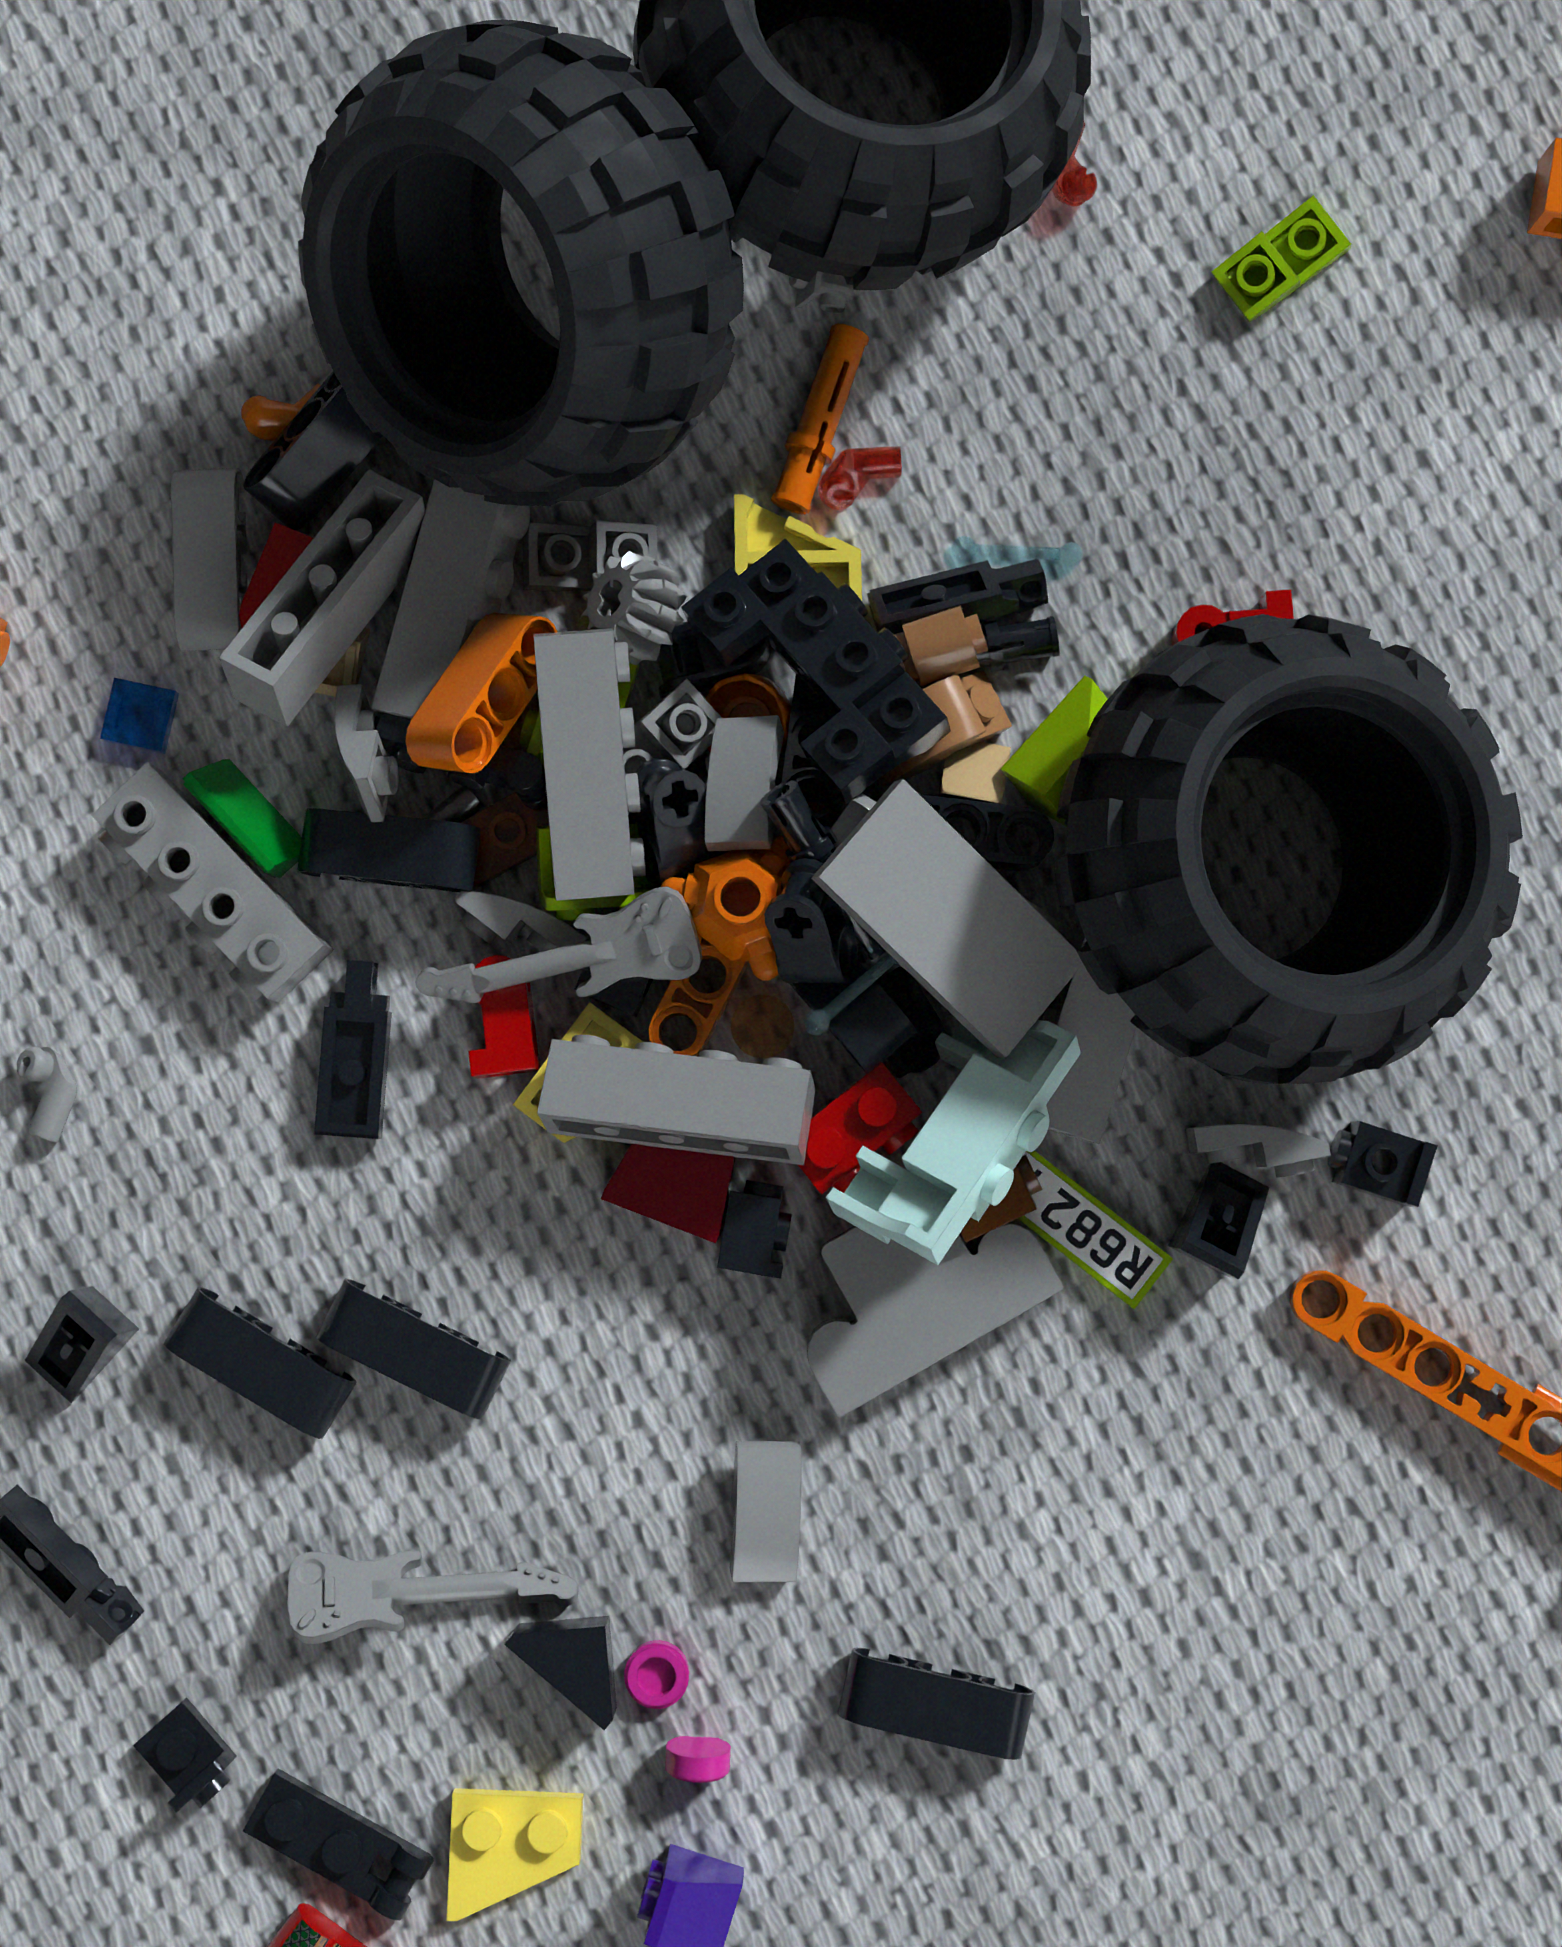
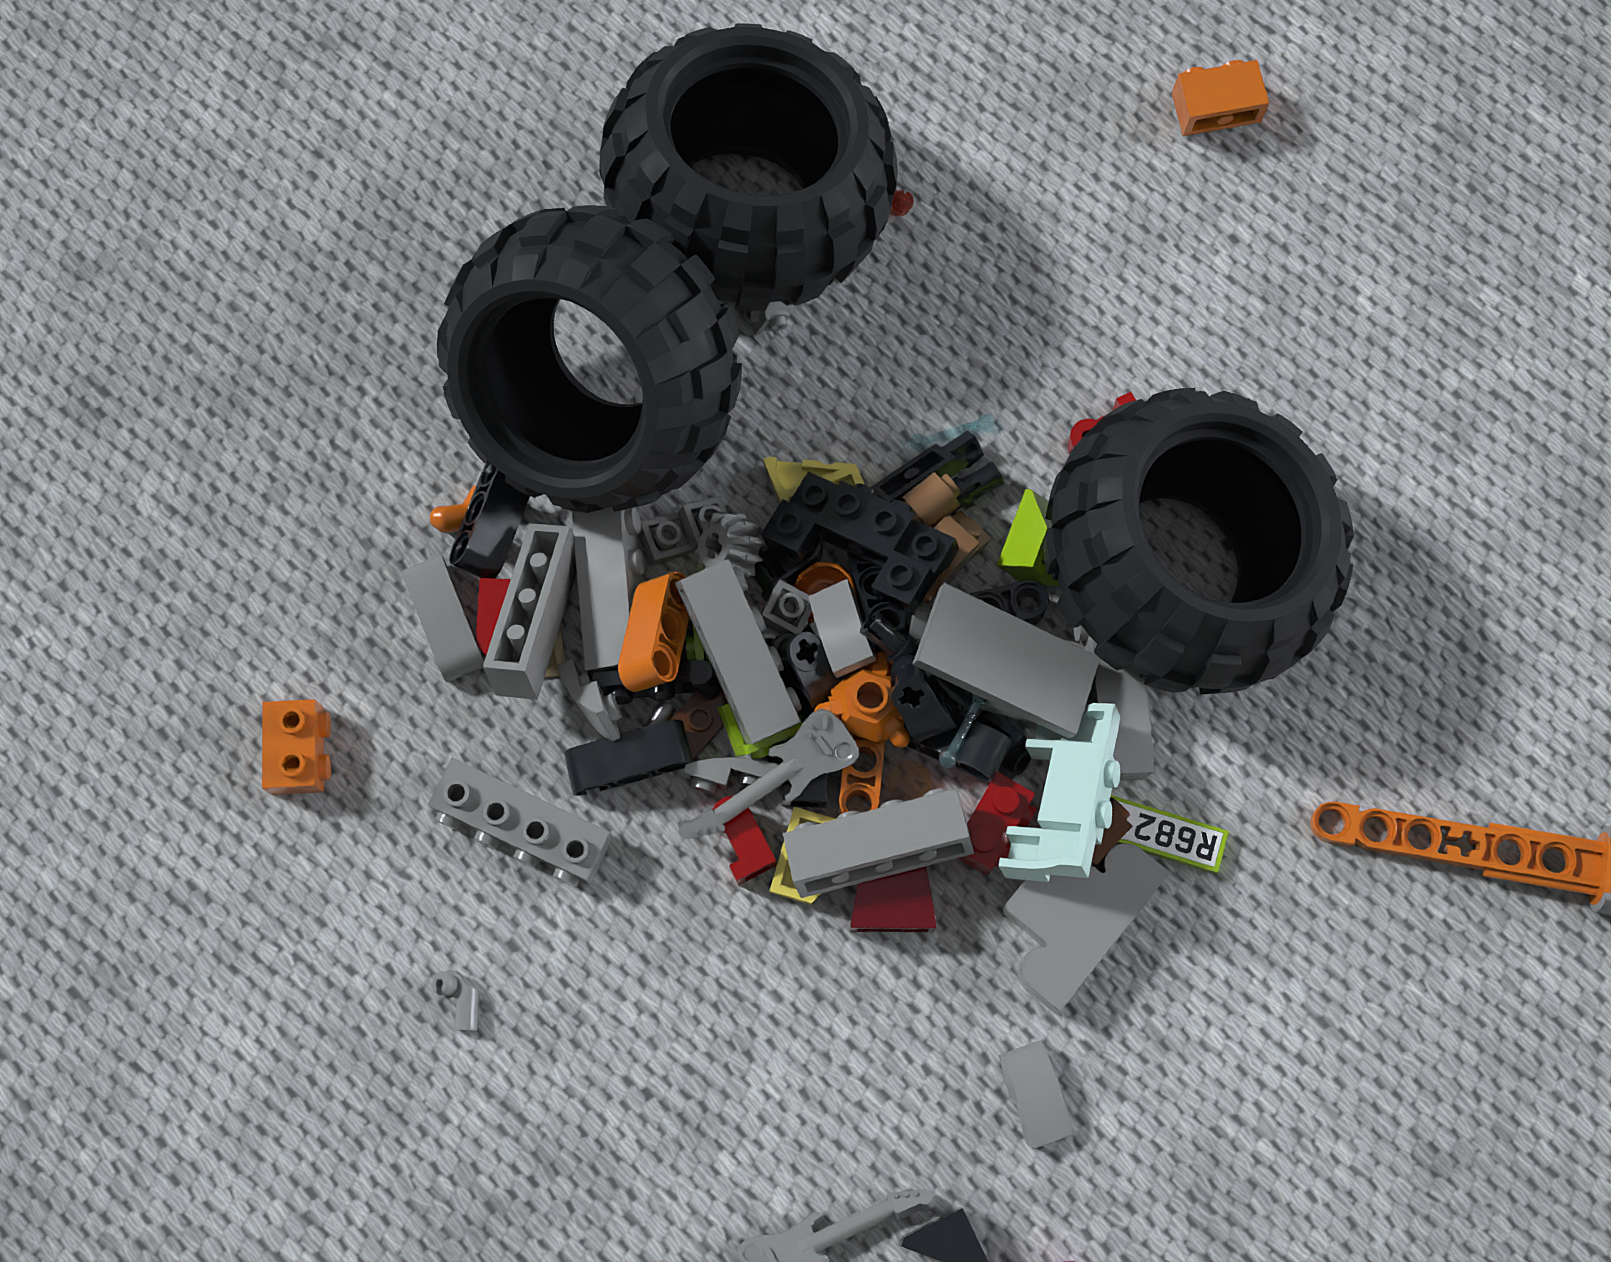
camera: 25 degrees left, 10 degrees down
(79, 1341) = (539, 1159): black slope -> none
(139, 715) = (432, 734): clear blue tile -> none
(246, 816) = (526, 772): green slope -> none
(257, 1365) = (666, 1124): black beam -> none
(354, 1057) = (654, 901): black hinge -> none
(411, 1351) = (764, 1075): black beam -> none
(656, 1674) = (1007, 1233): dark pink tile -> none
(754, 1230) = (957, 913): black brick -> none
(811, 443) = (798, 408): orange pin -> none
(852, 471) = (830, 420): clear red arm -> none
(935, 1706) = (1197, 1179): black beam -> none
(975, 773) = (981, 574): tan slope -> none
(1221, 1220) = (1249, 796): black slope -> none
(1273, 1146) = (1261, 735): light grey slope -> none
(1281, 259) = (1042, 202): lime slope -> none
(1408, 1171) = (1320, 732): black brick -> none

